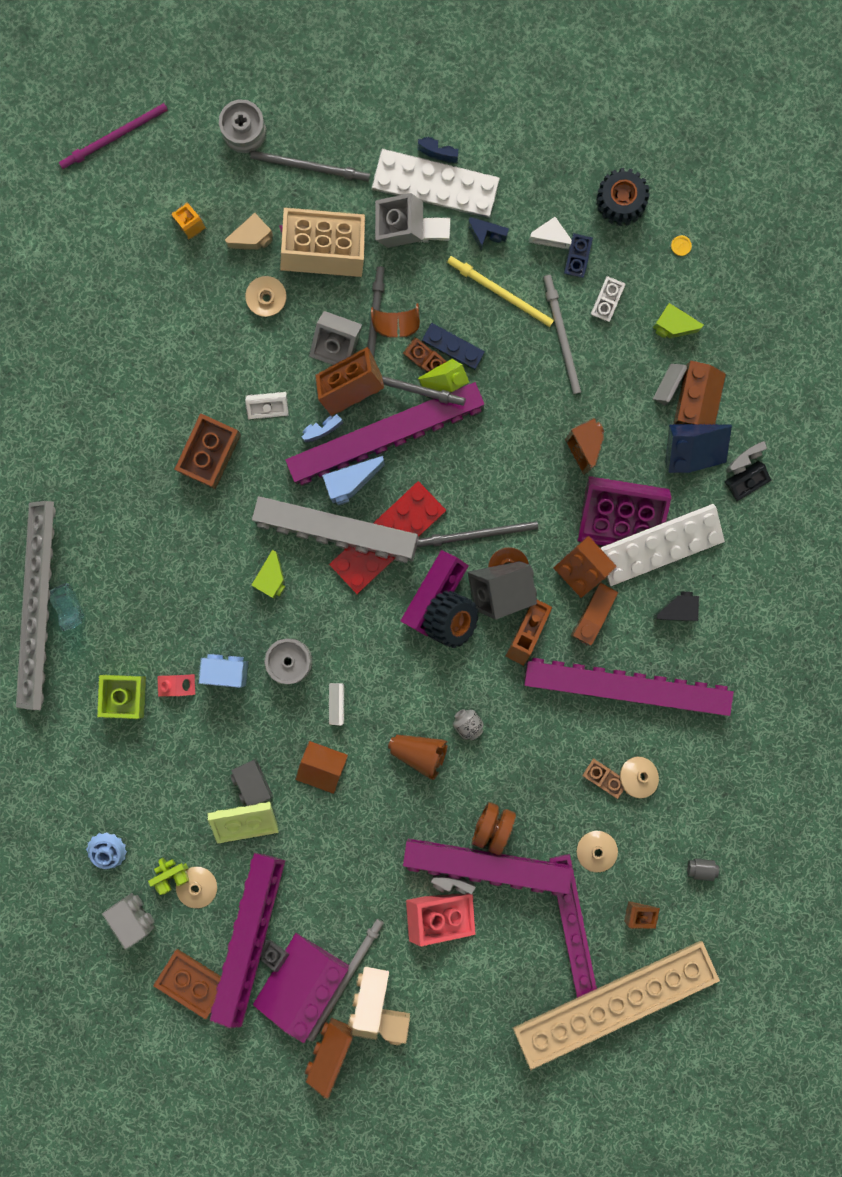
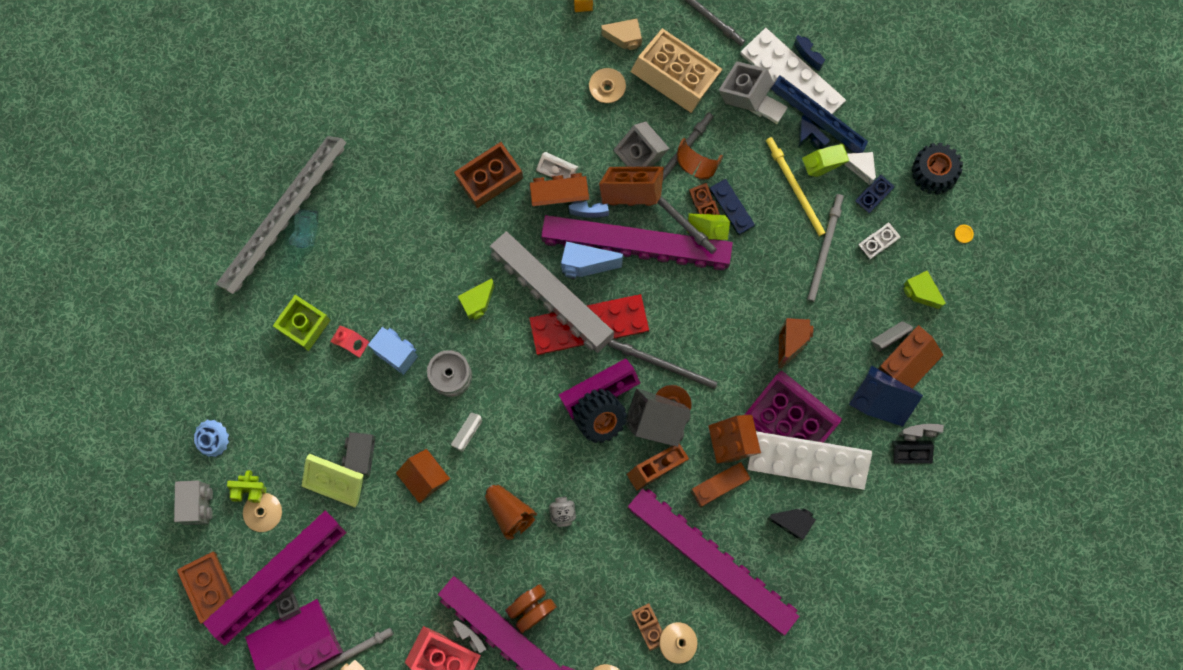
camera: 35 degrees right, 10 degrees down
(284, 427) = (559, 189): none -> dark orange slope
(484, 209) = (819, 115): none -> dark blue plate
(515, 250) = (825, 160): none -> lime slope

